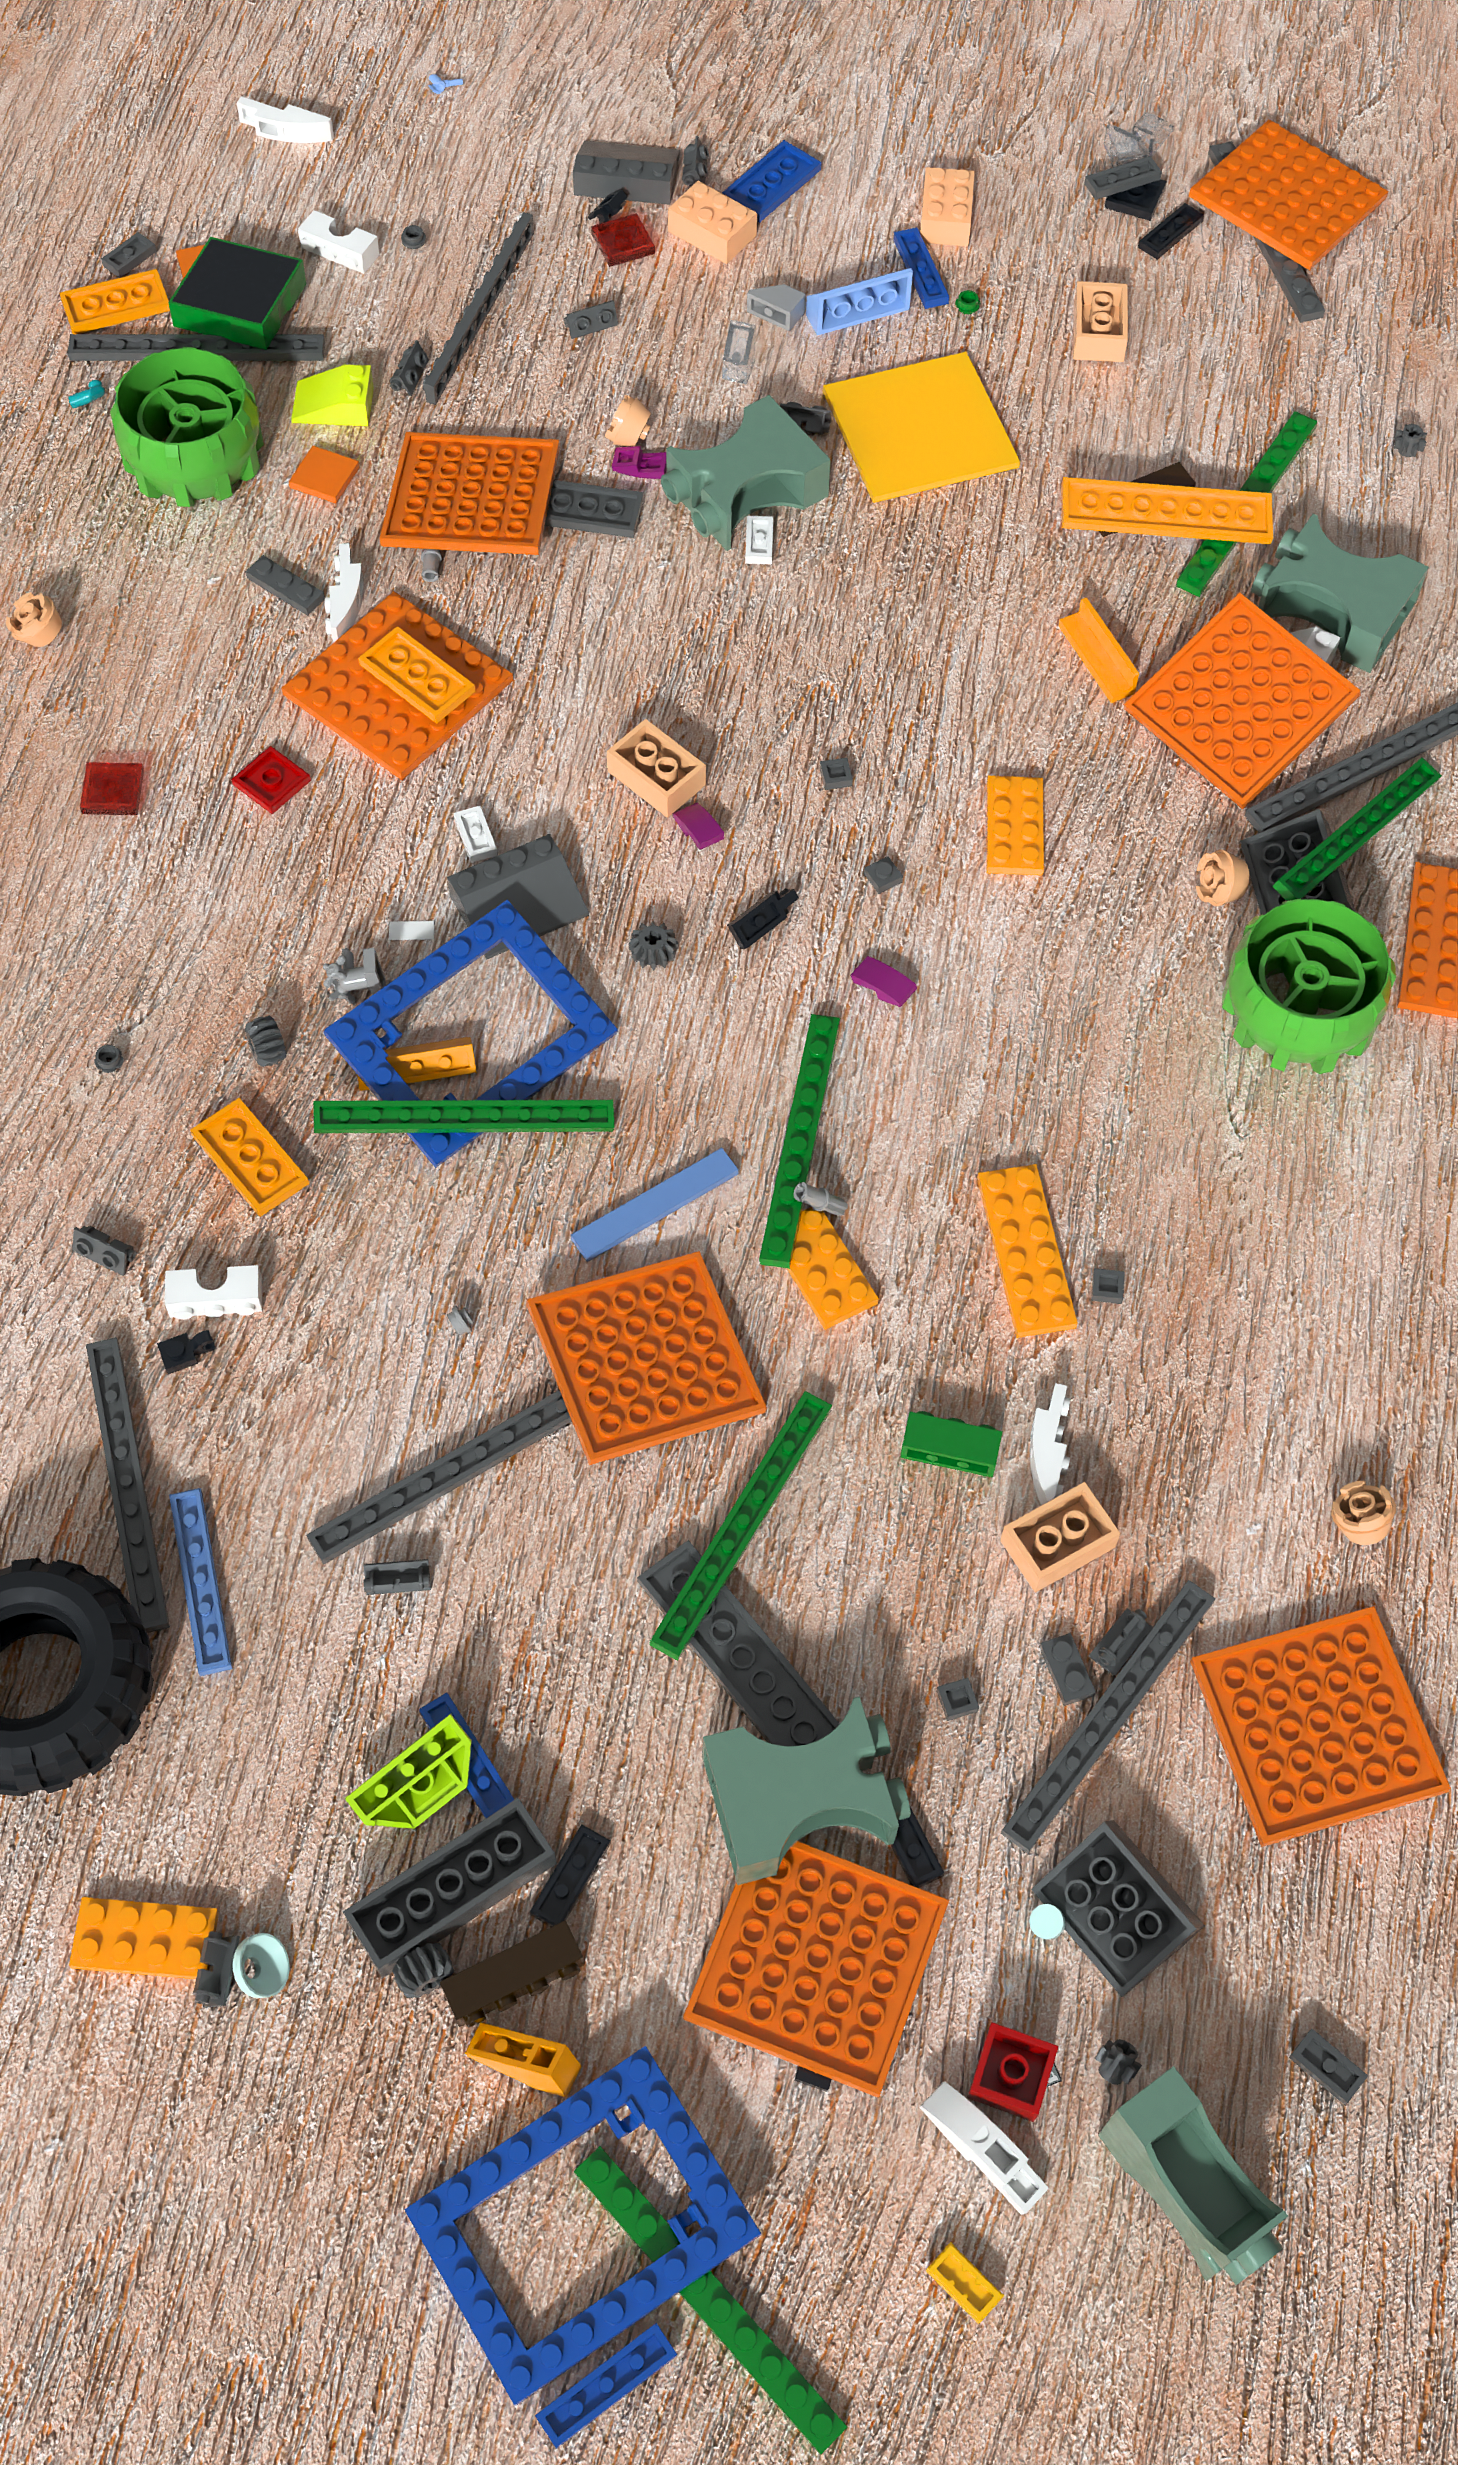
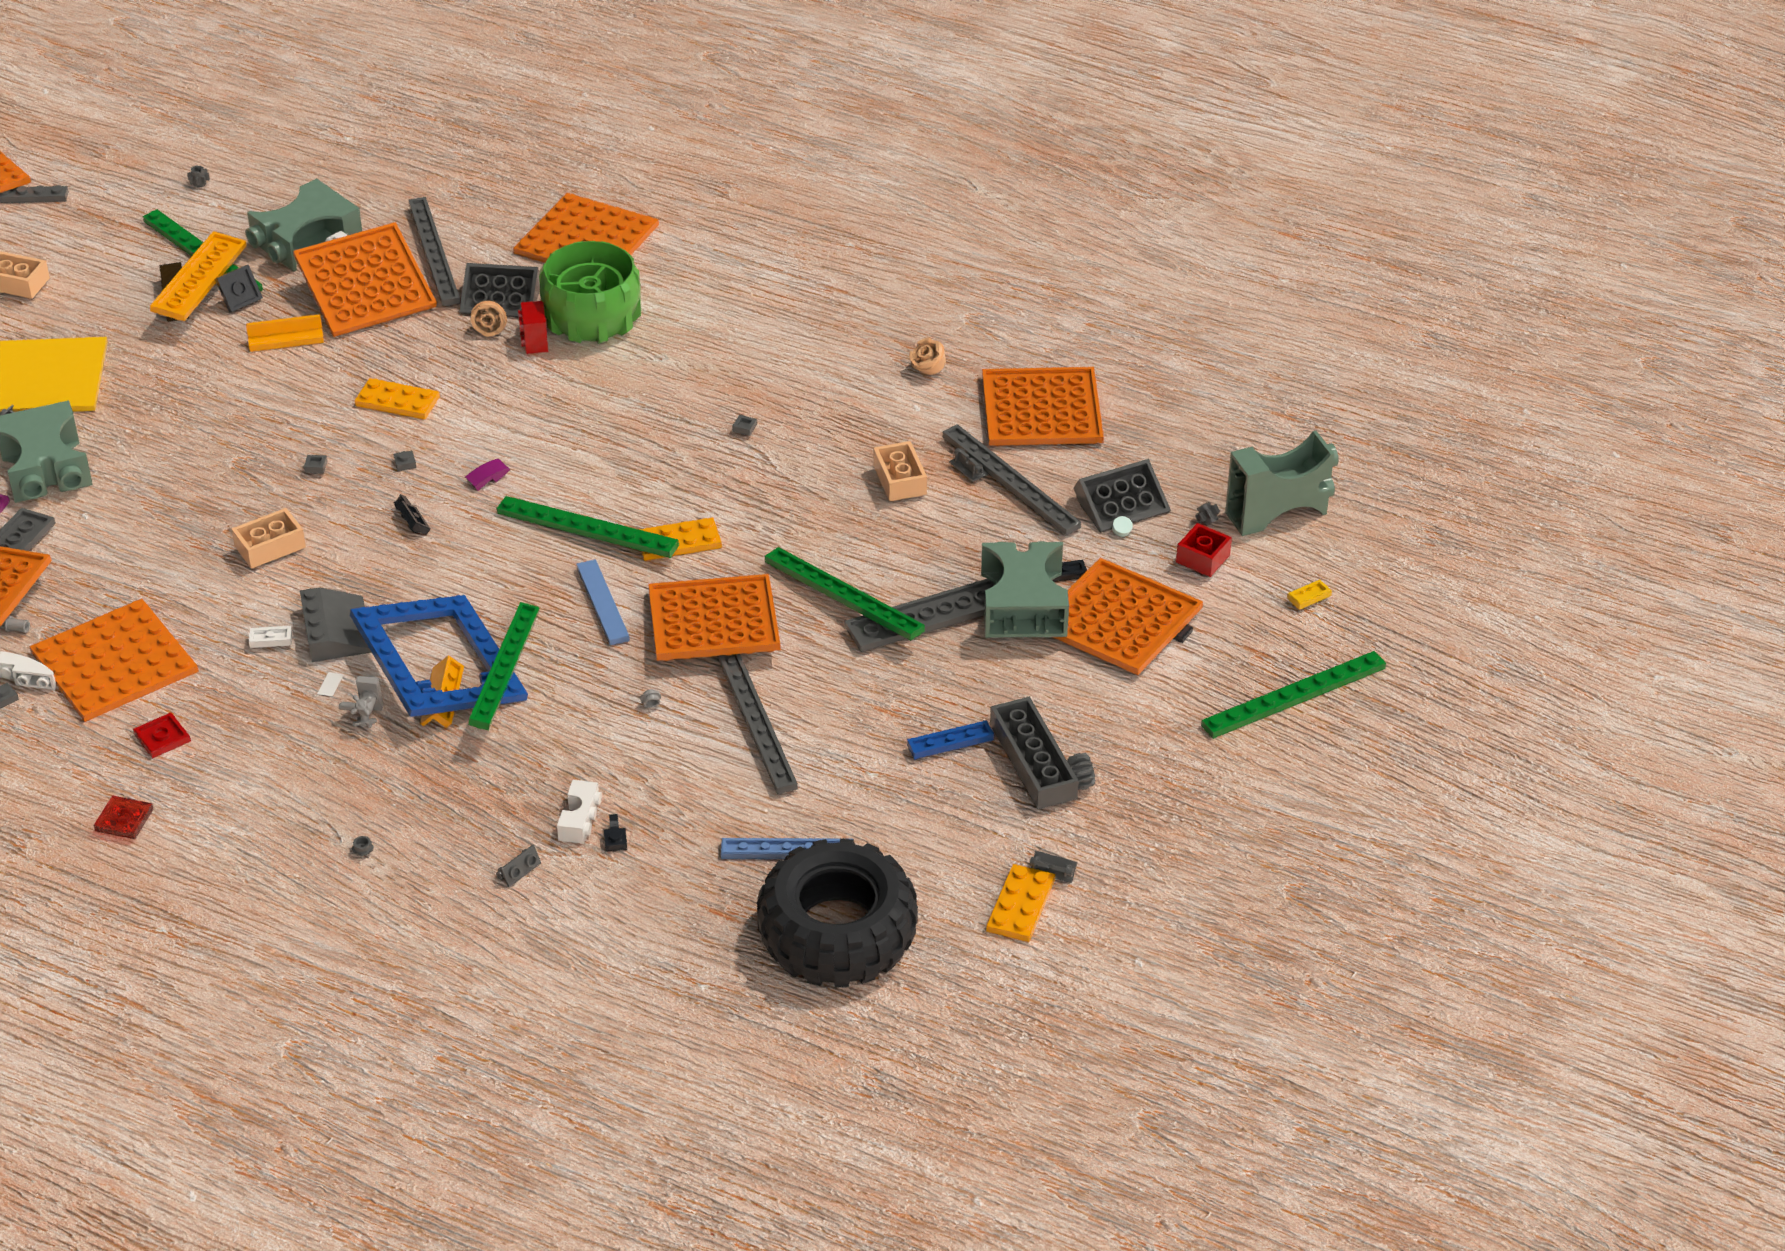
camera: 75 degrees left, 20 degrees down
(127, 1484) = (681, 872): dark grey plate -> none
(249, 1157) = (479, 782): light orange plate -> none
(265, 1041) = (393, 756): dark grey gear -> none
(270, 1965) = (1057, 846): light aqua piece -> none
(397, 1577) = (822, 751): dark grey hinge -> none
(416, 1779) = (958, 751): lime wedge -> none
(417, 674) = (121, 636): light orange plate -> none
(513, 1974) = (1092, 737): dark brown brick -> none
(526, 2058) = (1144, 739): light orange slope -> none
(570, 1877) = (1052, 717): black tile -> none
(606, 2385) = (1334, 738): blue plate -> none
(653, 945) = (408, 566): dark grey gear -> none
(699, 825) = (323, 529): magenta slope -> none
(714, 2205) = (1261, 667): blue plate -> none
(759, 540) = (102, 463): white plate -> none
(820, 1199) = (637, 522): light grey axle -> none
(951, 1443) = (822, 505): green brick -> none
(957, 1699) = (982, 534): dark grey plate -> none
(985, 2145) = (1236, 568): white slope -> none
(1026, 1251) = (704, 454): light orange plate -> none
(1046, 1449) = (842, 470): white slope -> none
(1067, 1669) = (977, 491): dark grey plate -> none
(1166, 564) = (238, 288): none -> black tile
(1213, 939) = (533, 327): none -> red brick
(1328, 2066) = (1230, 442): dark grey plate -> none
(1357, 831) = (491, 251): green plate -> none

